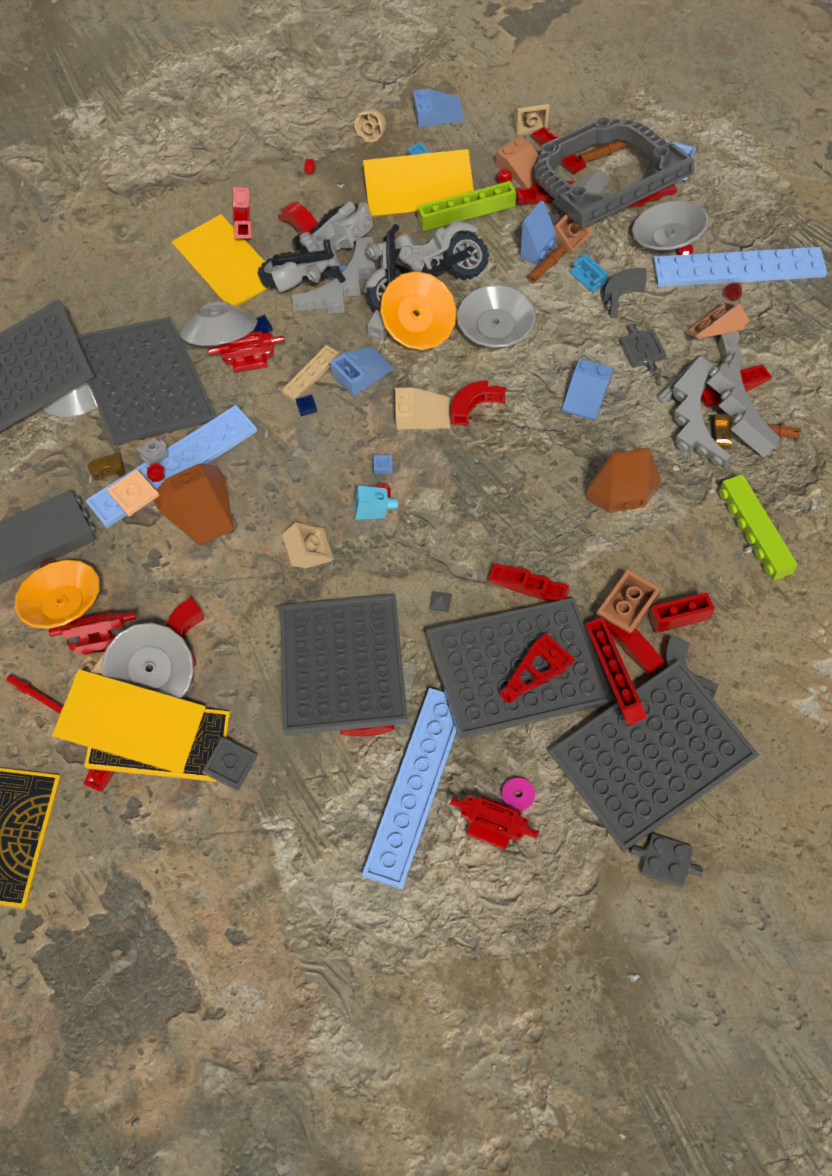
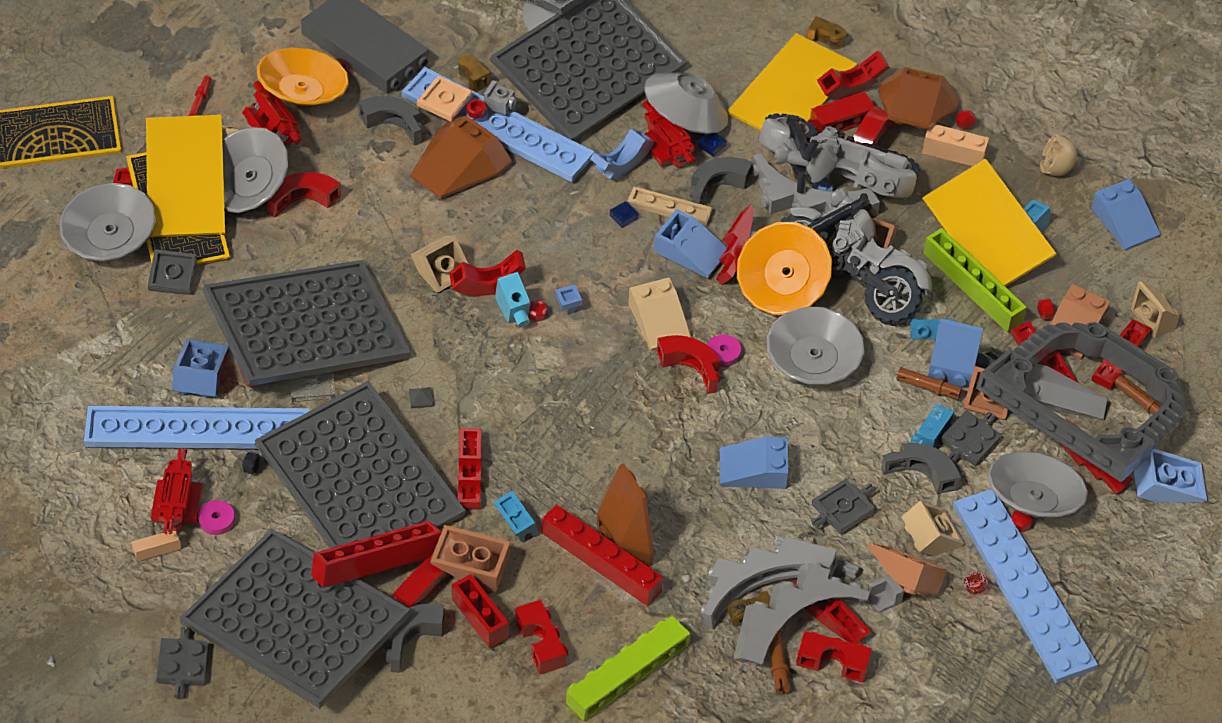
camera: 65 degrees right, 10 degrees down
(125, 535) = (392, 110): none -> dark grey arch
(145, 786) = (107, 221): none -> light grey dish
(183, 221) = (827, 33): none -> pearl gold leg
(250, 384) = (625, 157): none -> medium blue arch
(270, 234) = (841, 113): none -> red brick
(280, 185) = (917, 97): none -> dark orange wedge
(295, 323) = (718, 172): none -> dark grey arch
(333, 179) = (955, 145): none -> light nougat brick
(341, 510) = (483, 281): none -> red arch
(350, 766) = (199, 368): none -> medium blue slope
(374, 337) = (735, 239): none -> red slope
(467, 373) = (727, 343): none -> dark pink piece
(470, 750) = (251, 462): none -> black tile
(497, 245) = (925, 328): none -> dark azure hinge
(533, 855) = (155, 545): none -> light nougat slope
(552, 653) = (380, 498): red plate -> none
(592, 561) = (516, 516): none -> dark azure hinge
(605, 254) = (970, 437): none -> dark grey plate
(646, 513) = (602, 555): none -> red brick
(682, 302) = (931, 529): none -> tan slope
(728, 574) = (536, 620): none -> red arch
(783, 382) = (817, 648): none -> red arch

